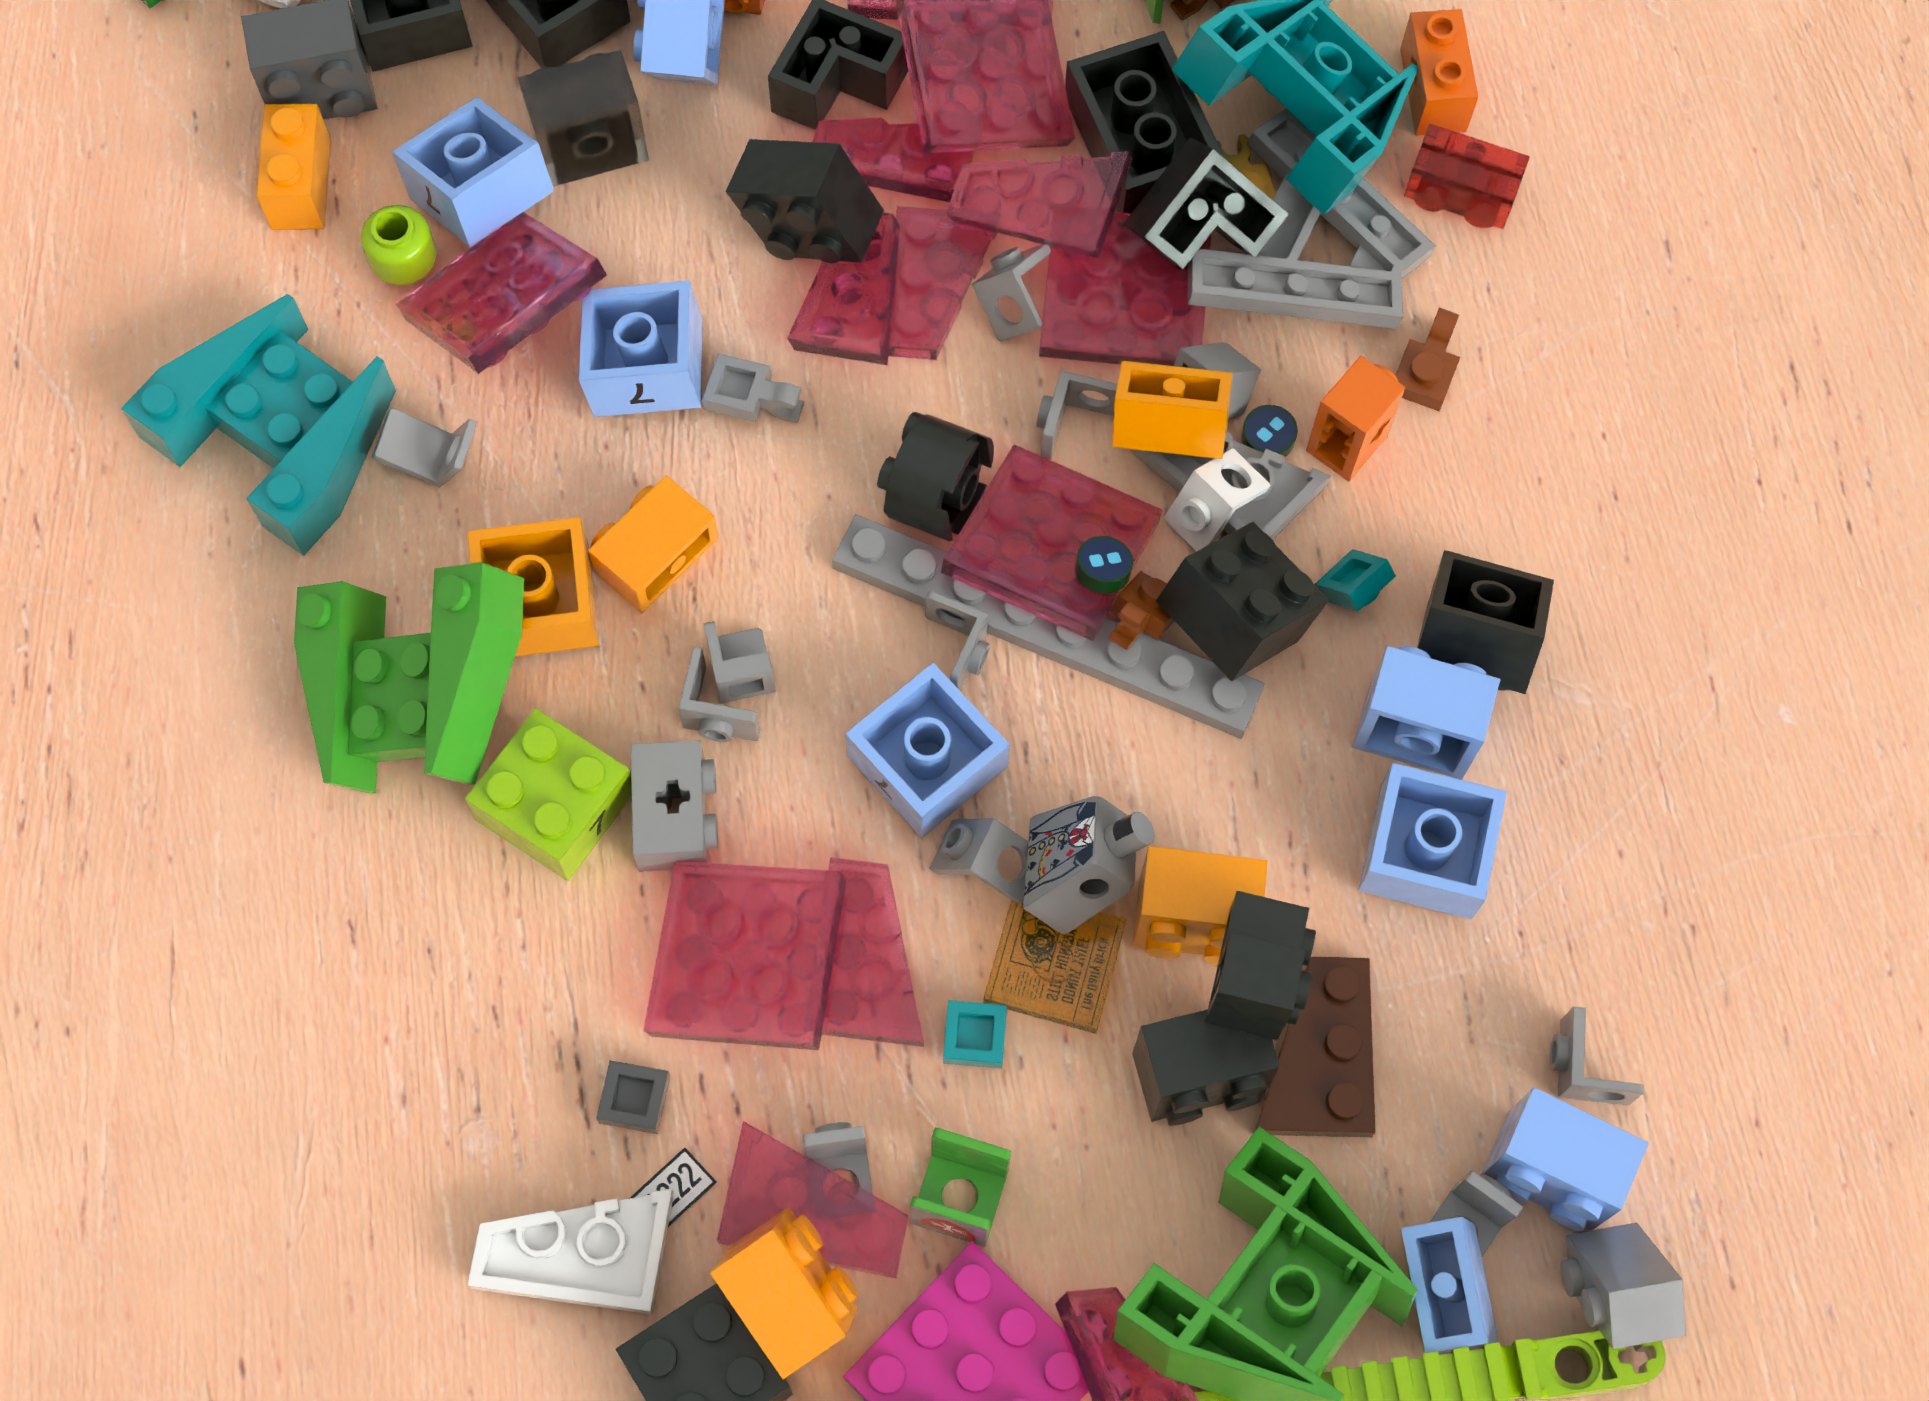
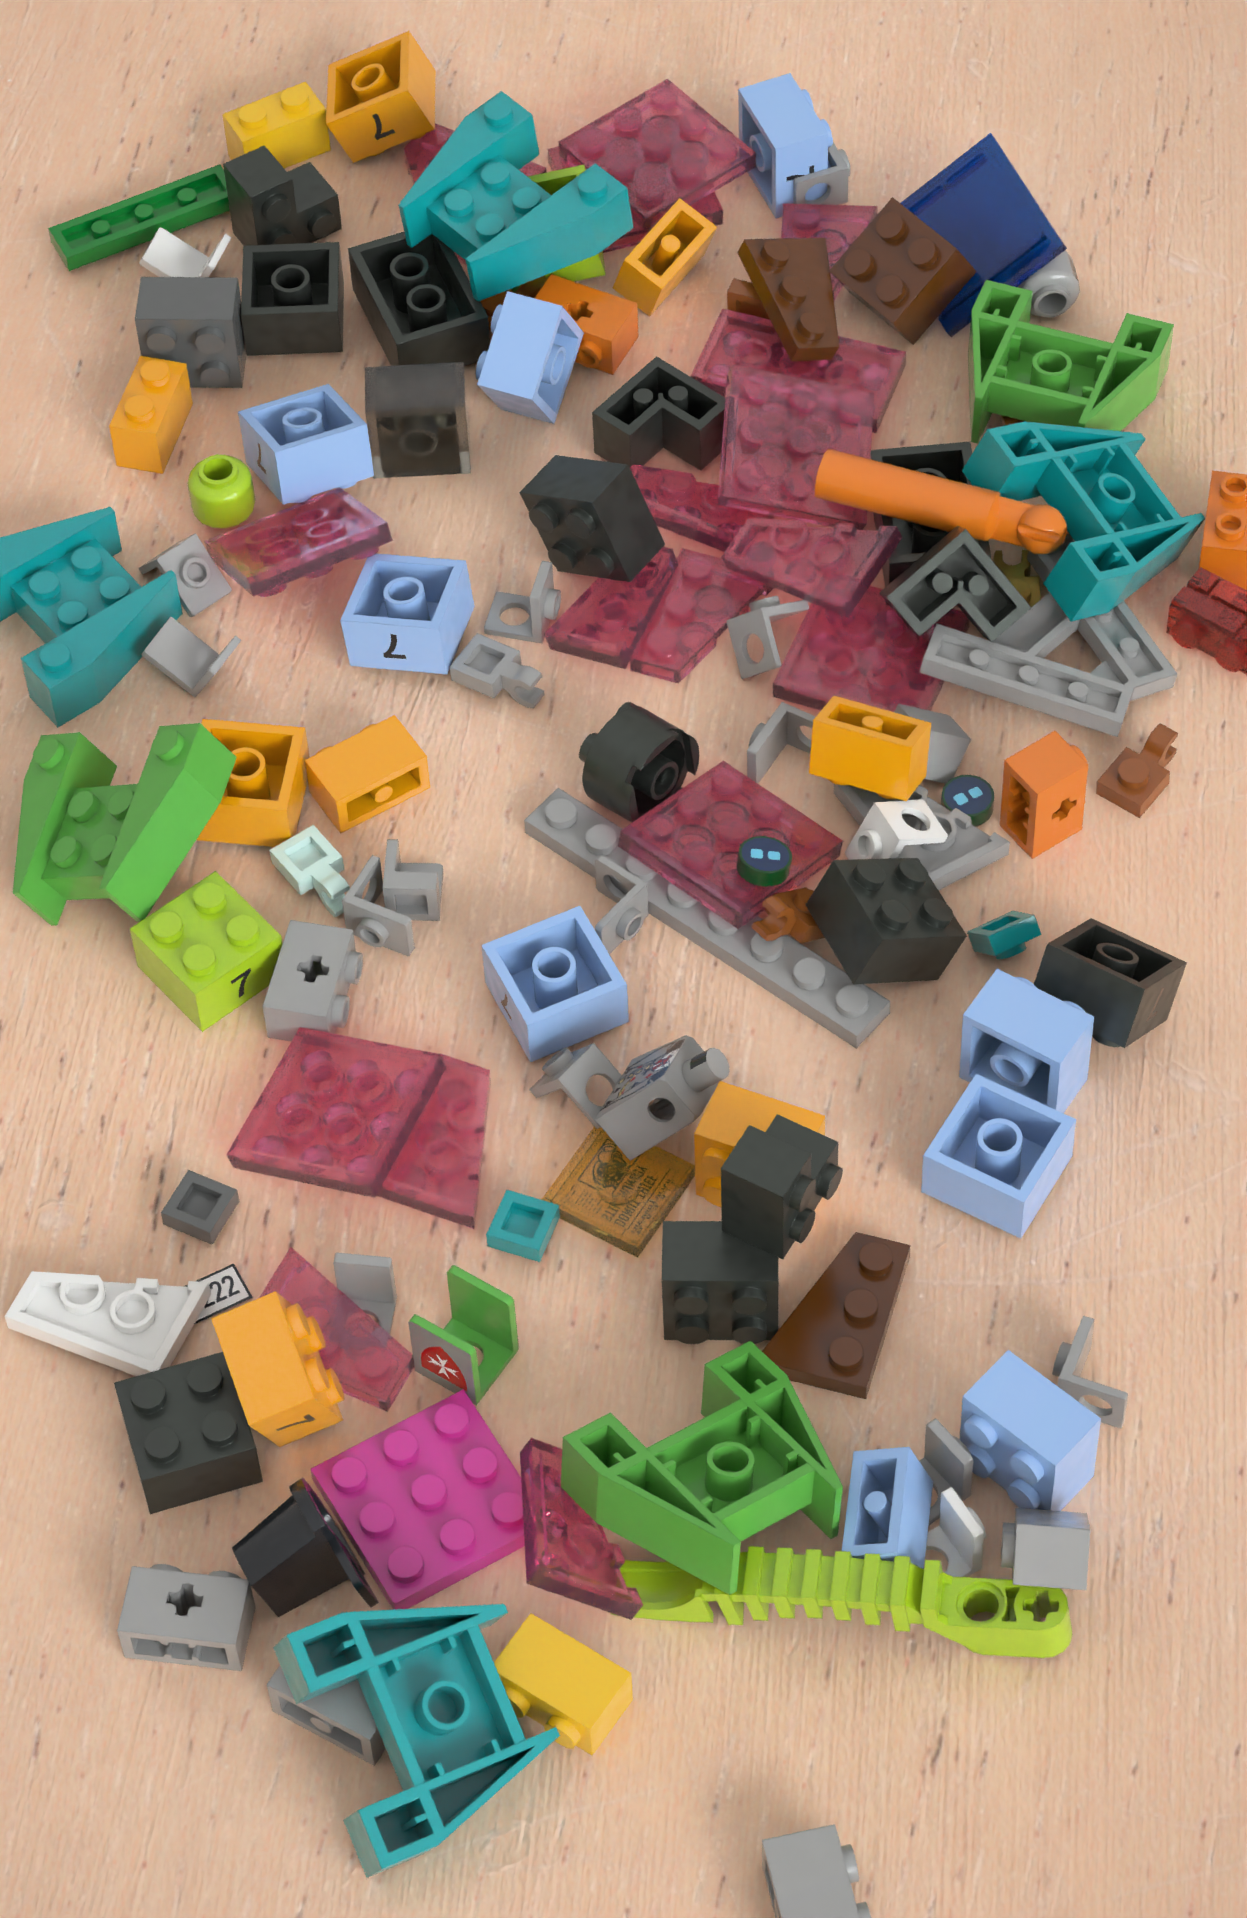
camera: 20 degrees right, 15 degrees down
(388, 335) = (196, 574): none -> light grey bracket
(628, 662) = (310, 863): none -> light aqua plate
(772, 308) = (541, 606): none -> light grey bracket
(1161, 113) = (937, 502): none -> orange piece
(1522, 1283) = (958, 1536): none -> white bracket

